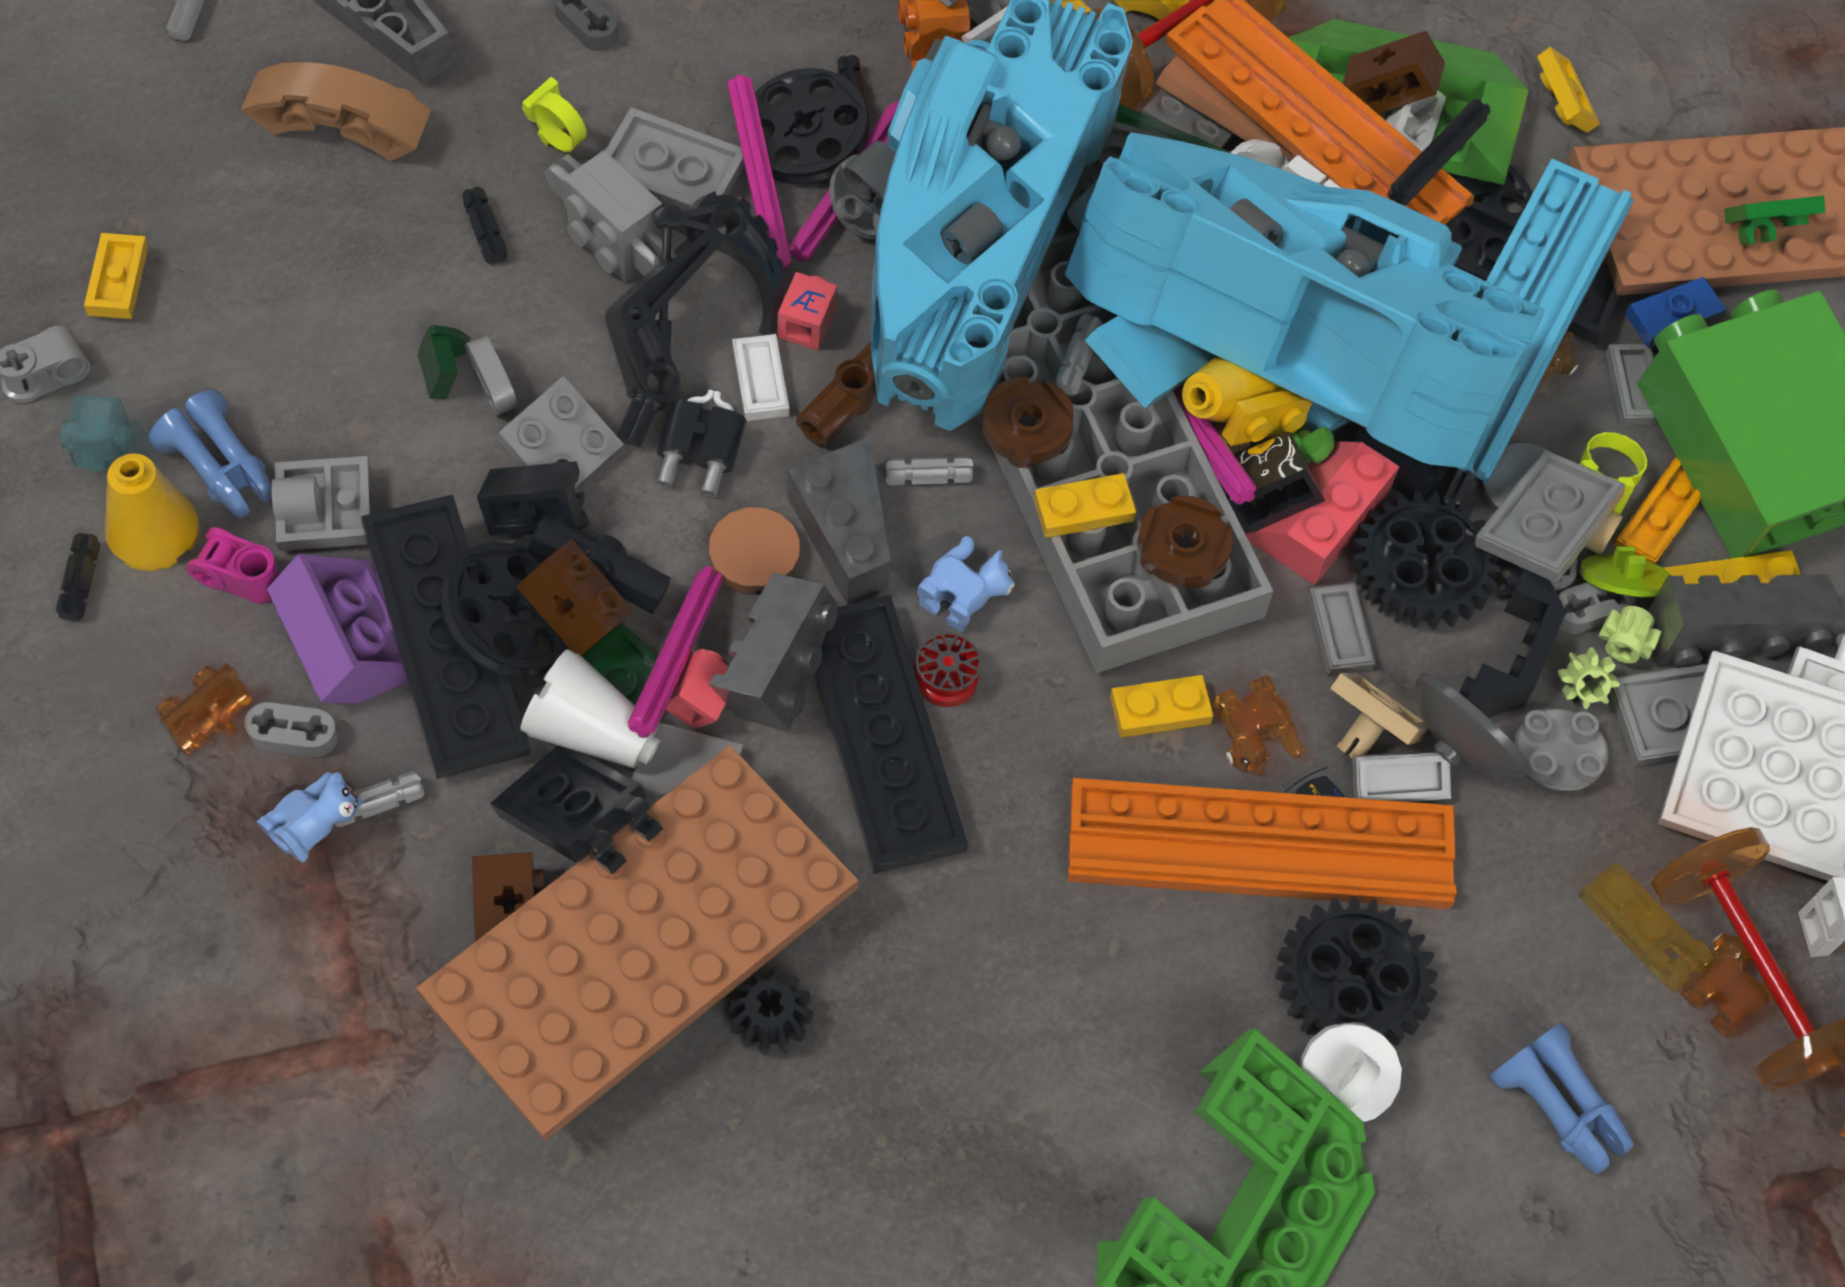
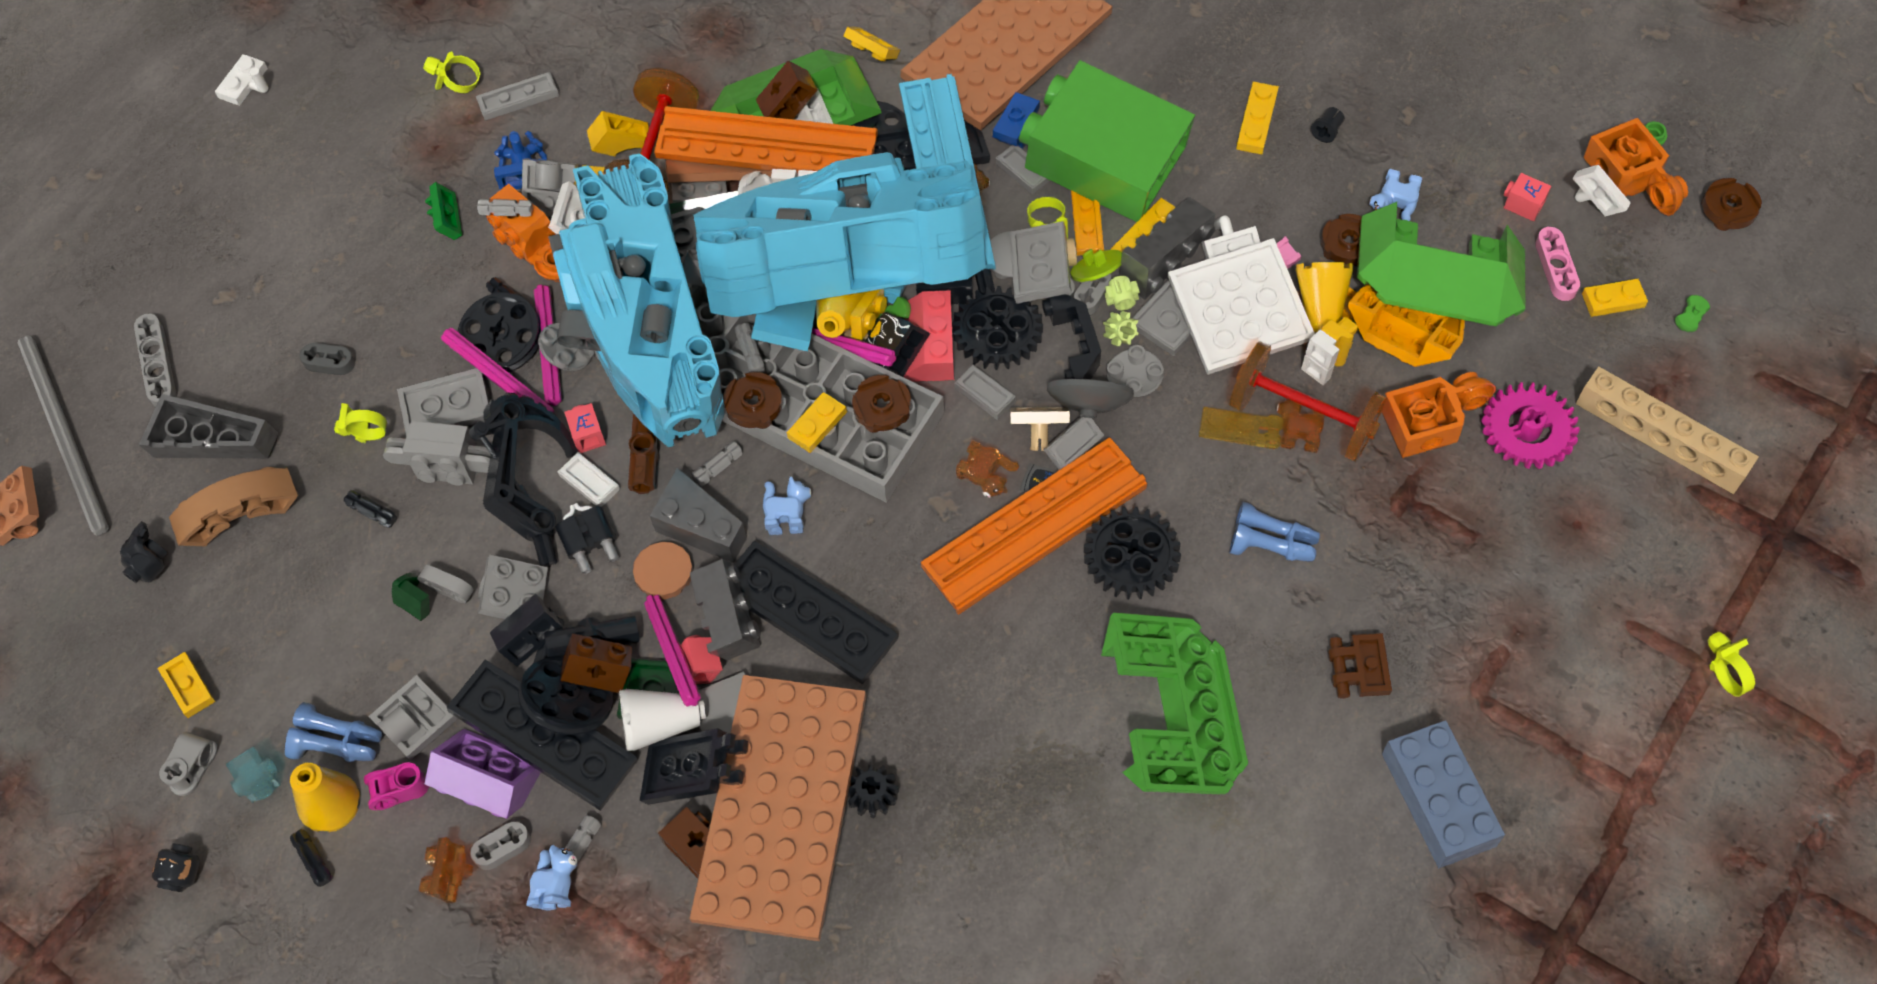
camera: 30 degrees left, 0 degrees up
(192, 93) = (141, 556): none -> black head
(947, 671) = (814, 555): red wheel -> none
(1161, 706) = (931, 494): yellow plate -> none
(1354, 1067) = (1168, 595): white tile -> none
(1439, 152) = (843, 118): black axle -> none
(1791, 212) = (1016, 43): green plate -> none

